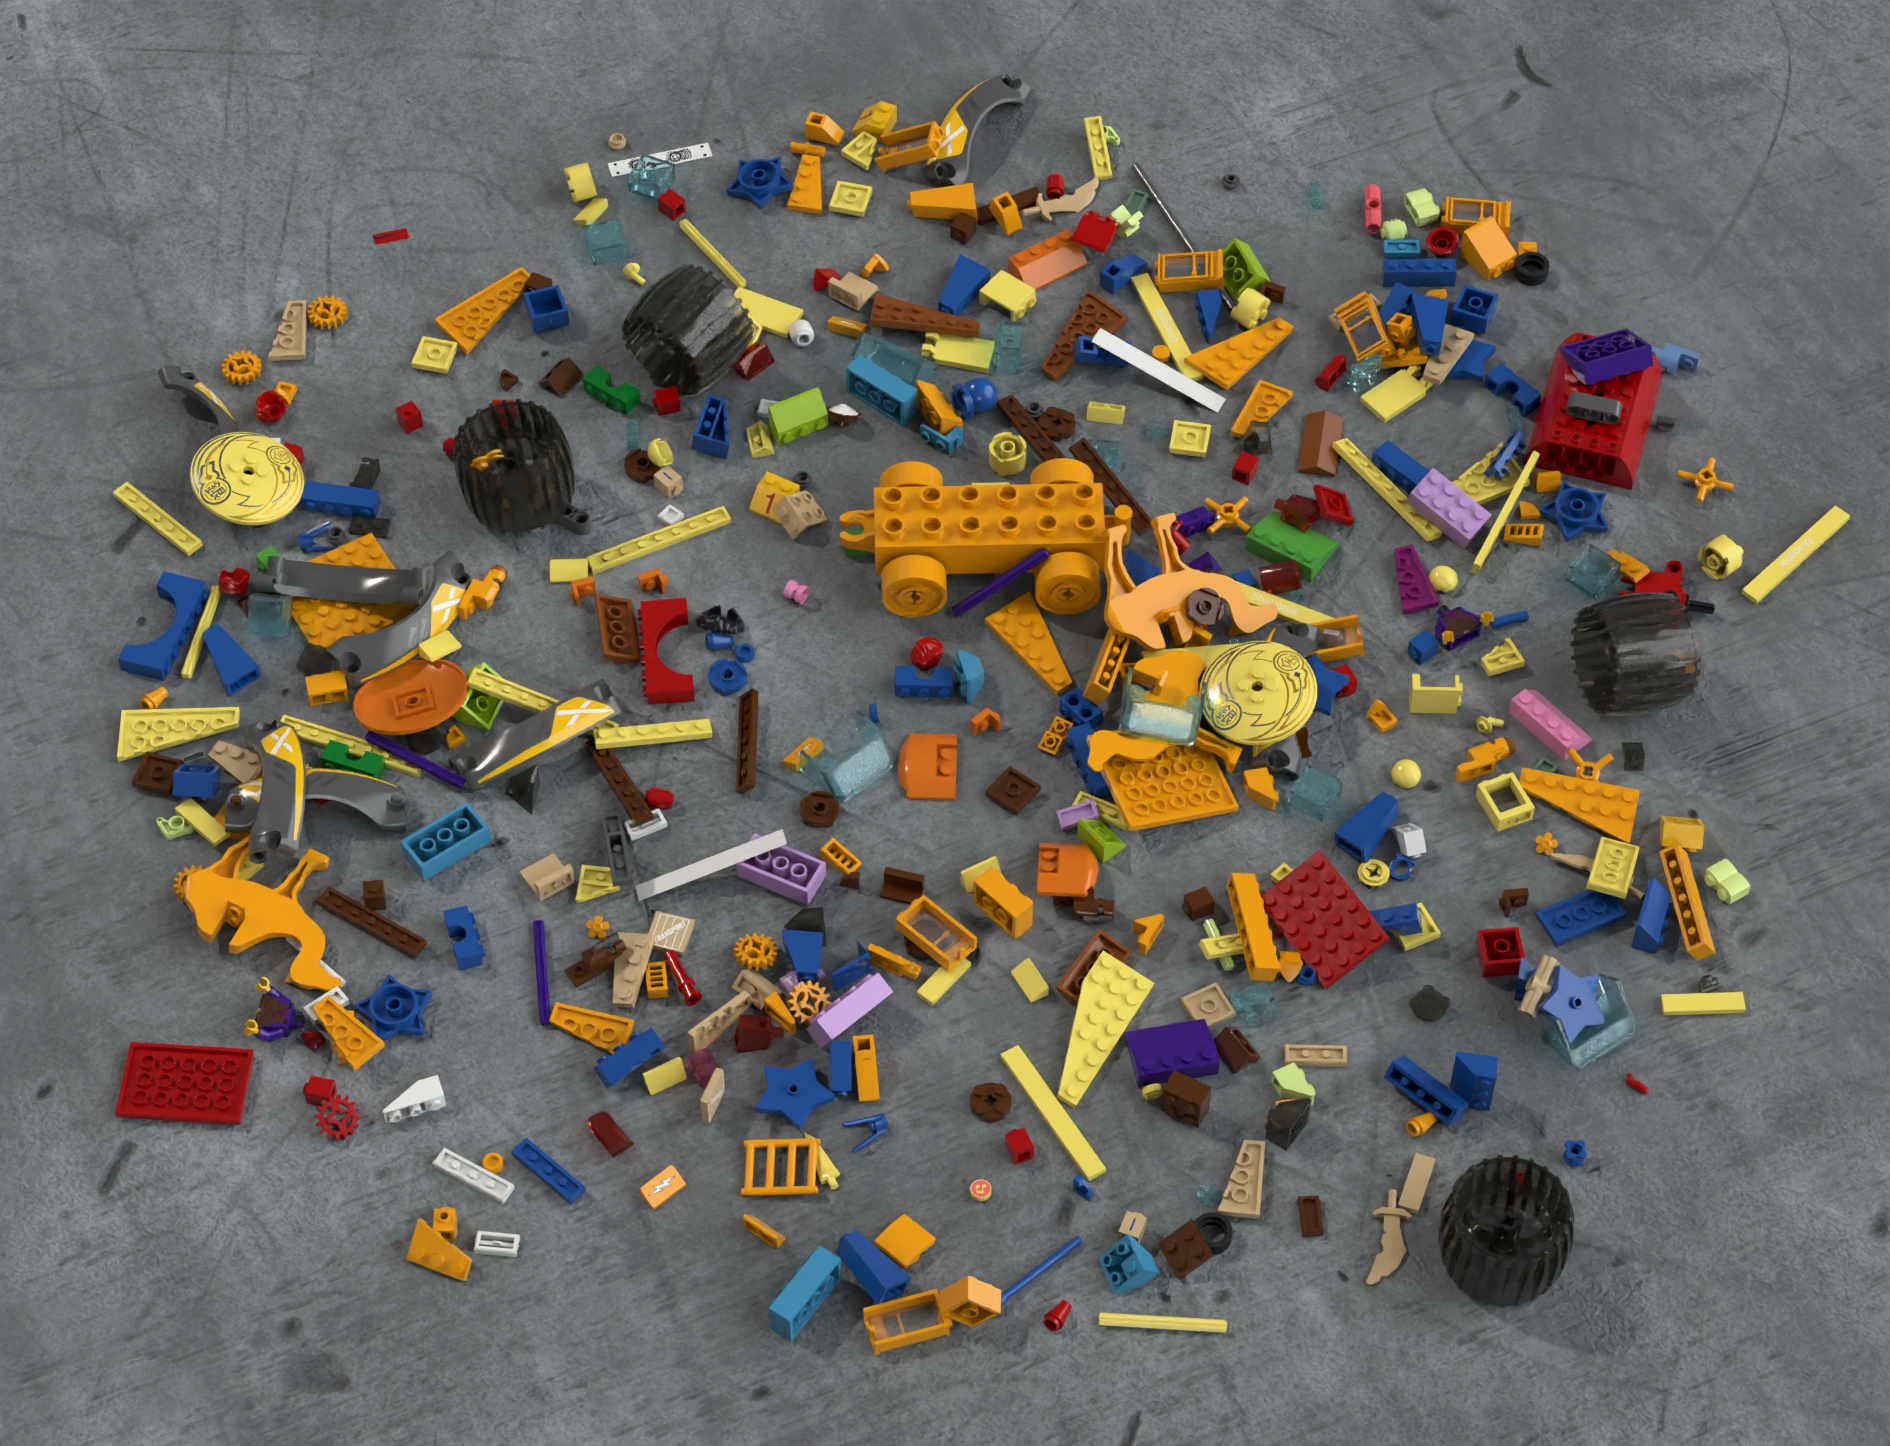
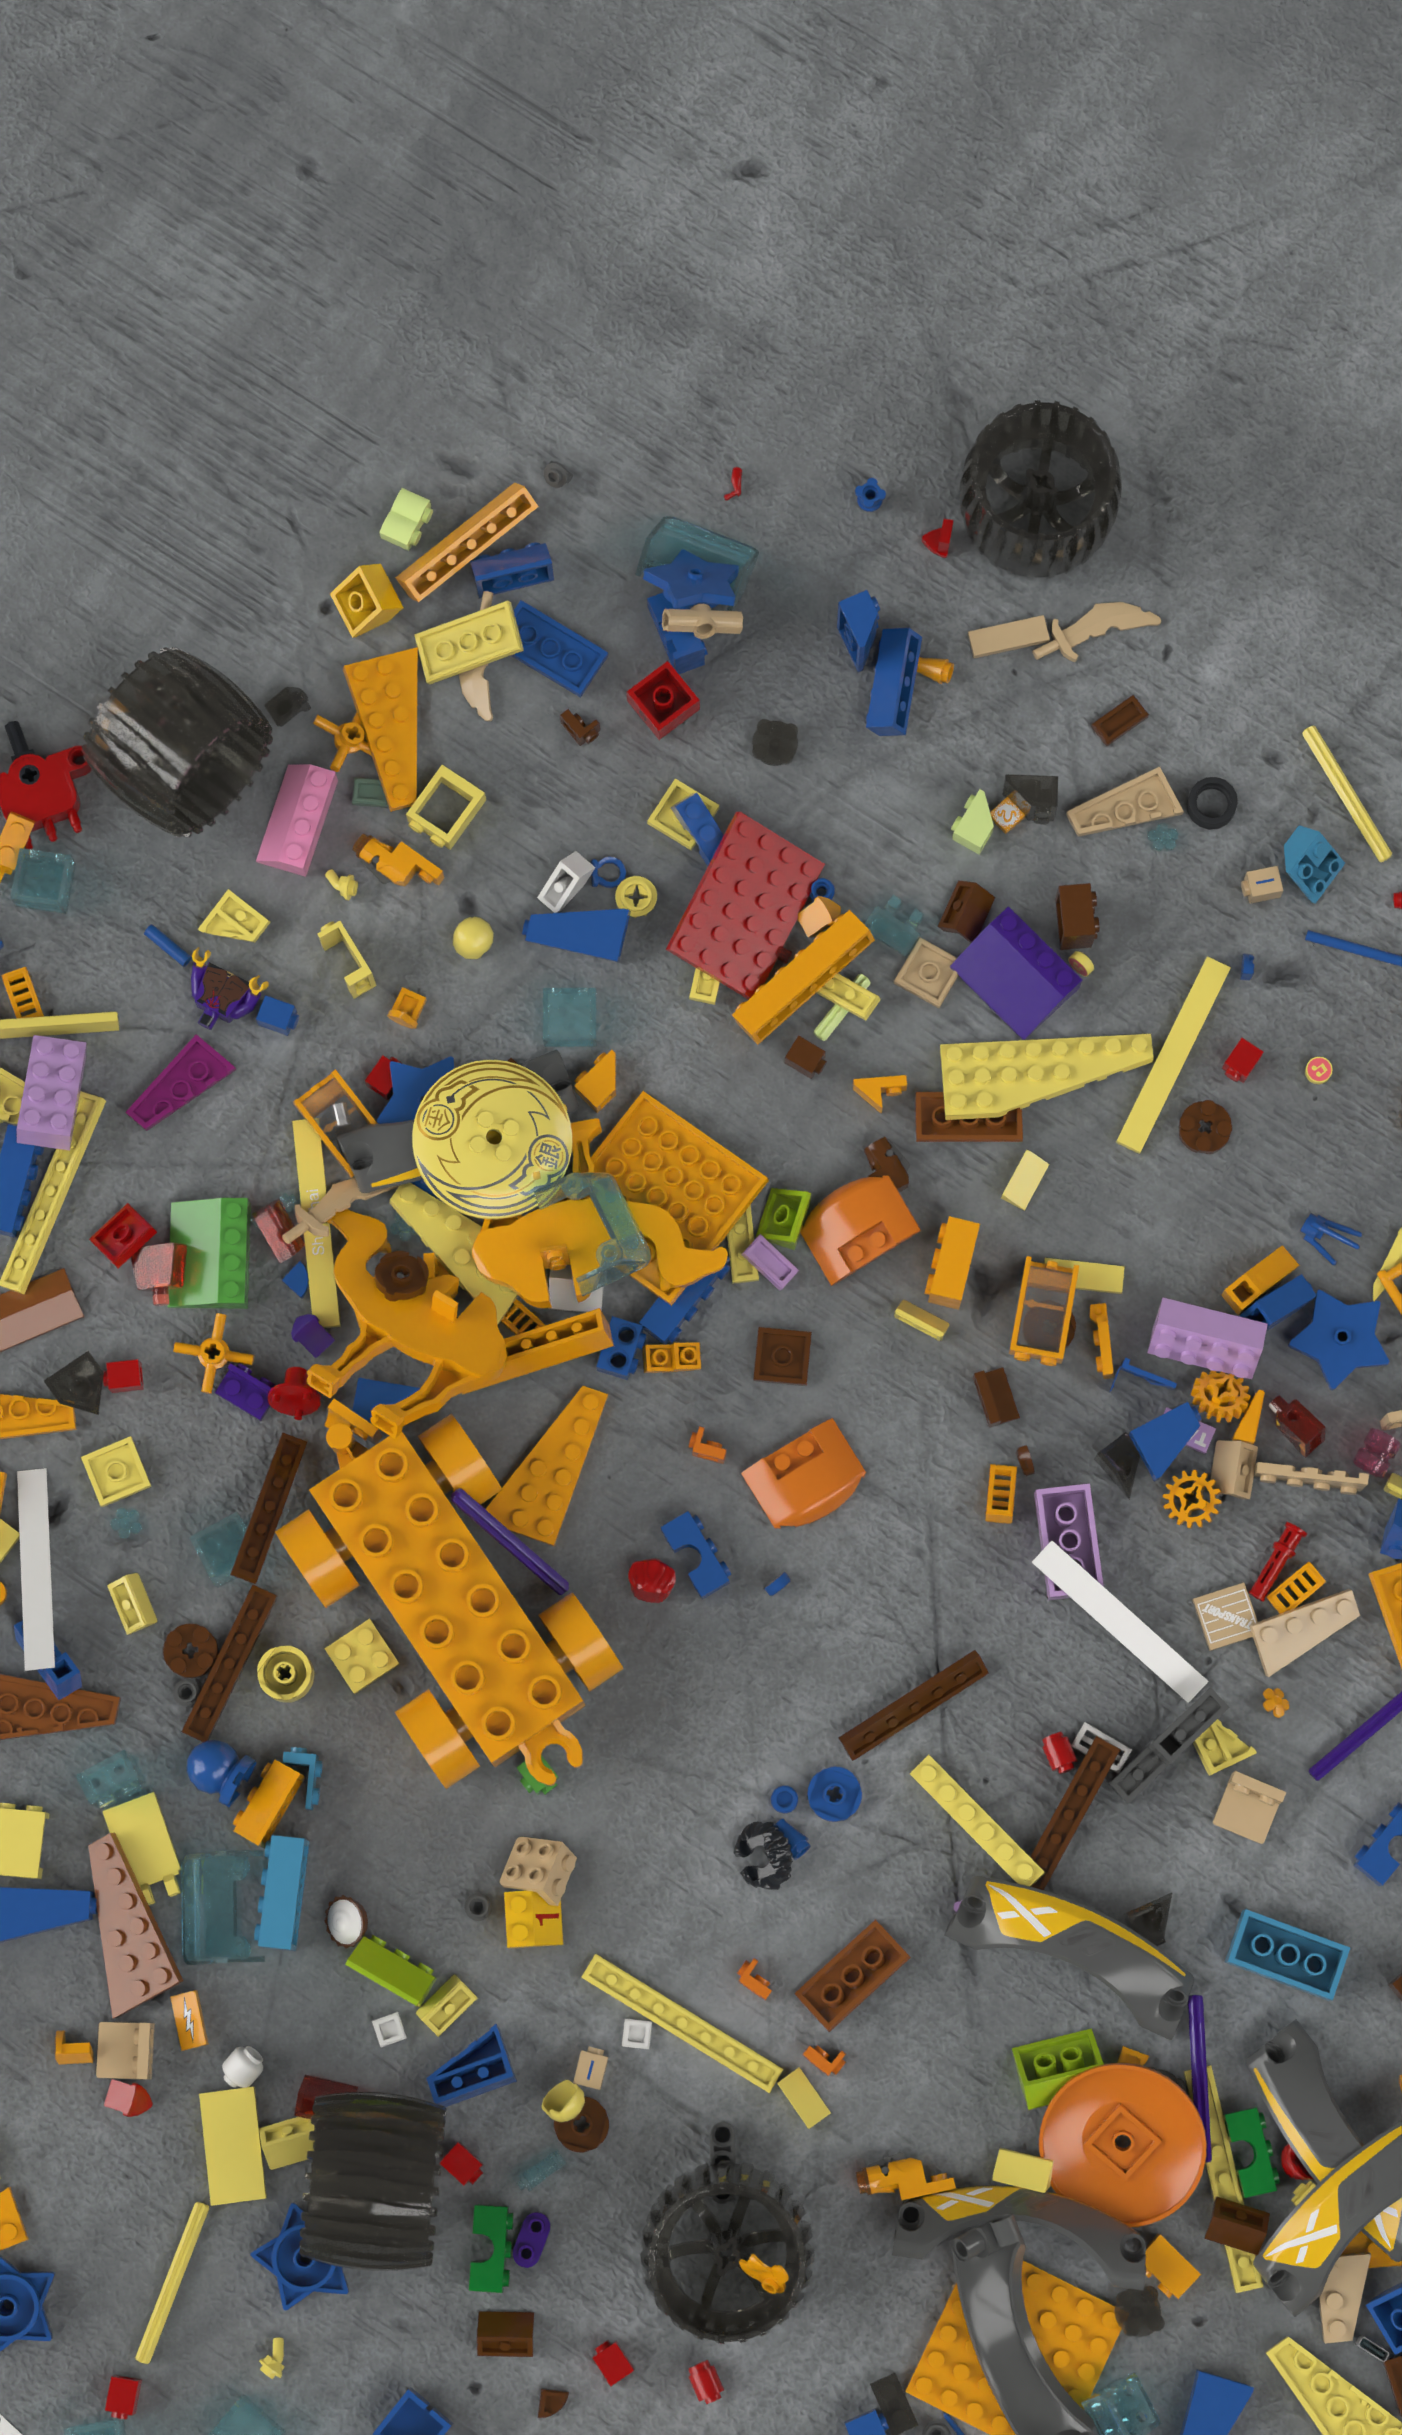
camera: 120 degrees left, 25 degrees up
(320, 731) = (1237, 2226): none -> reddish brown panel
(518, 695) = (1038, 2011): light yellow tile -> none
(596, 960) = (1323, 1670): reddish brown plate -> none
(597, 411) = (533, 2240): none -> dark purple plate
(661, 682) = (811, 1935): red arch -> none
(796, 592) = (659, 1795): bright pink wheel -> none
(810, 746) = (885, 1632): light orange slope -> none
(819, 819) = (956, 1544): reddish brown plate -> none
(855, 770) = (841, 1535): clear light blue windscreen -> none
(969, 674) = (655, 1502): dark azure slope -> none
(1134, 539) = (362, 1428): none -> light orange plate
(1185, 1249) = (1252, 815): reddish brown plate -> none
(1279, 613) = (336, 1200): none -> tan sword
(1316, 1055) = (917, 826): tan tile -> none
(1443, 579) = (154, 1052): light yellow hair -> none
(1546, 843) = (475, 734): light orange plant -> none
(1702, 1003) = (585, 468): light yellow tile -> none

